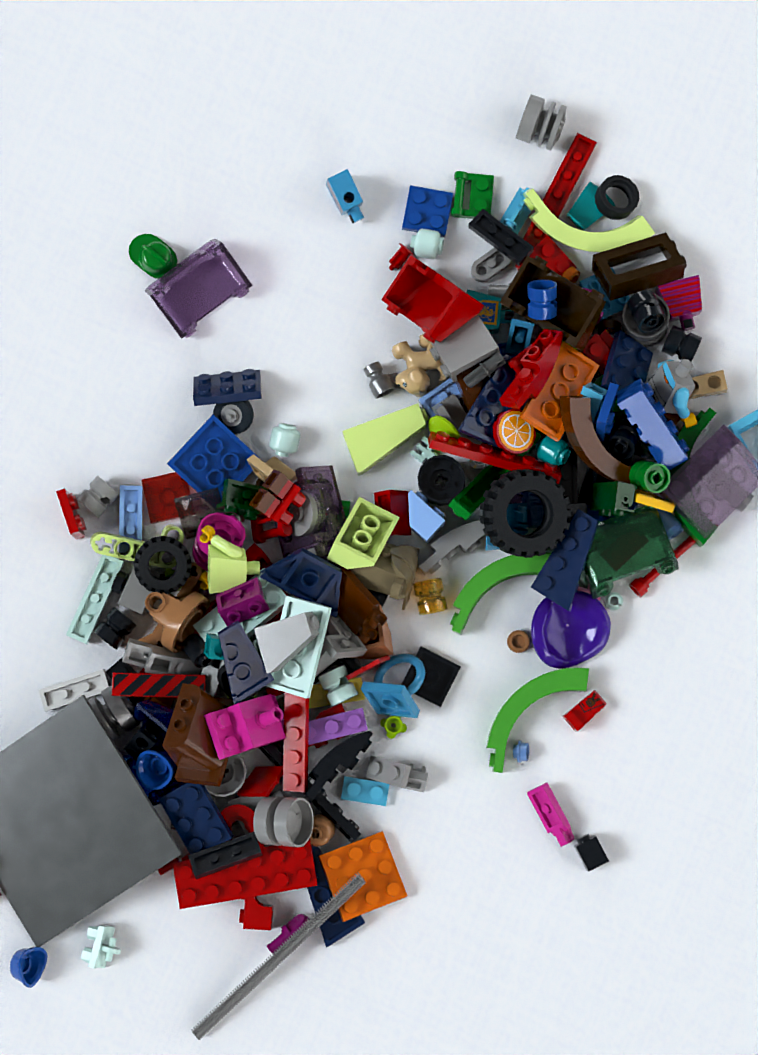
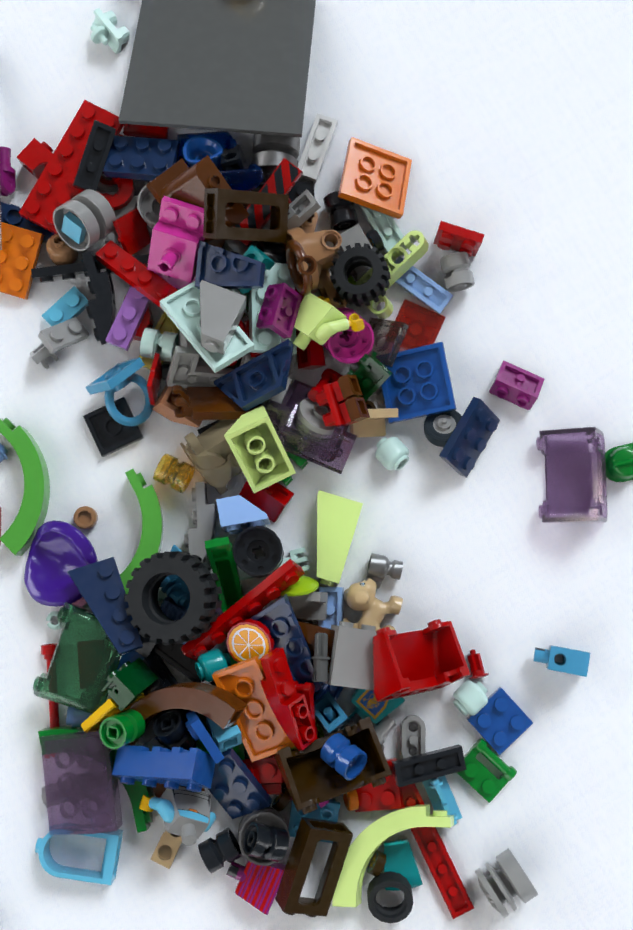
camera: 125 degrees right, 0 degrees up
(68, 619) = (375, 178): none -> orange plate
(155, 383) = (516, 385): none -> magenta bracket
(191, 705) = (214, 215): none -> dark brown piece
(209, 593) = (294, 248): none -> reddish brown piece
(297, 822) = (73, 227): none -> medium azure tile
(391, 732) = (94, 363): lime plate -> none
(601, 224) = (376, 863): none -> dark brown tile

